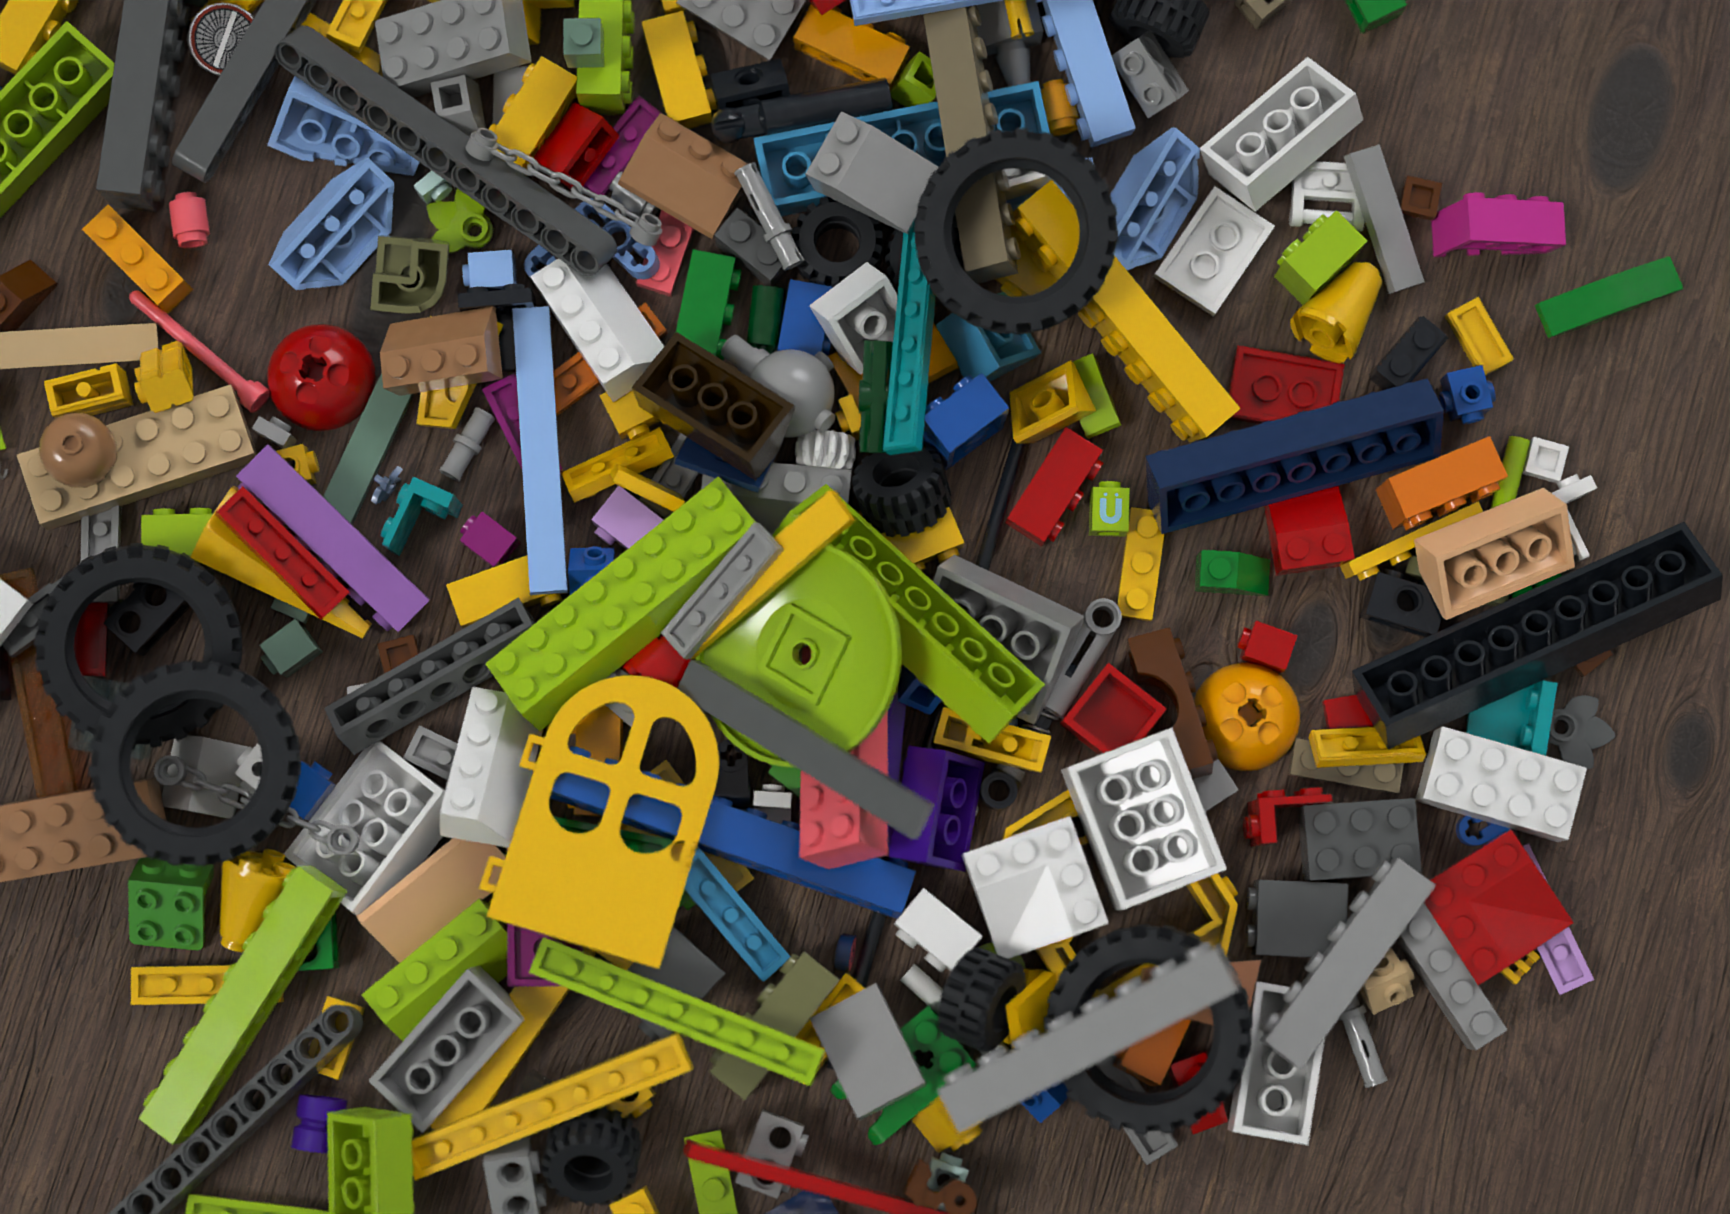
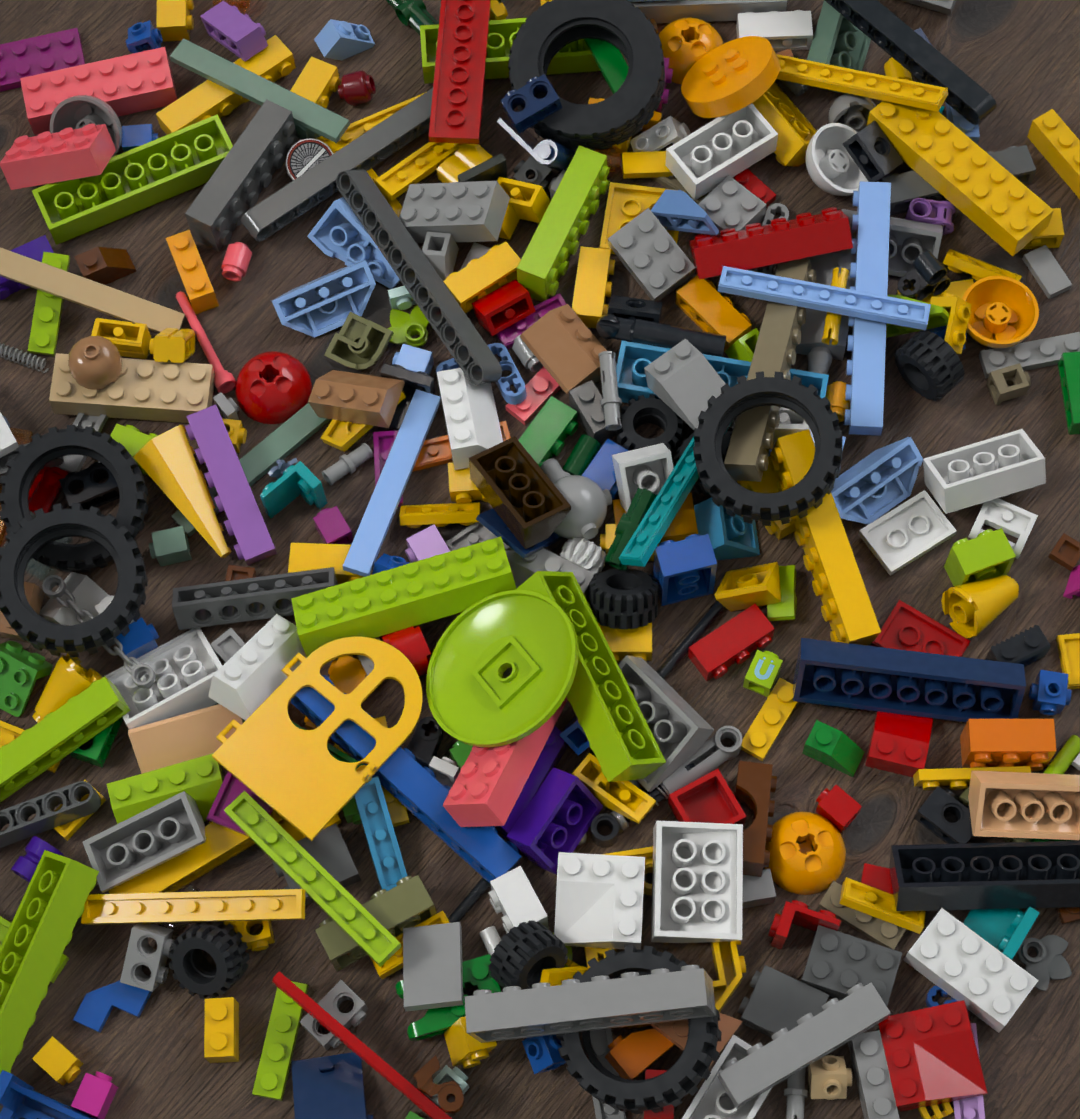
camera: 30 degrees right, 15 degrees down
(282, 553) = (192, 476): red plate -> none
(484, 145) = (525, 370): light grey piece -> none
(583, 42) = (534, 236): sand green brick -> none
(646, 488) = (449, 529): yellow tile -> none
(722, 591) = (469, 607): light grey tile -> none
(800, 542) = (500, 606): yellow tile -> none
(806, 749) = (479, 732): dark grey tile -> none
(845, 952) = (449, 897): dark blue tile -> none
(1149, 74) = (907, 400): light grey brick -> none
(1384, 219) = (1036, 555): light grey tile -> none

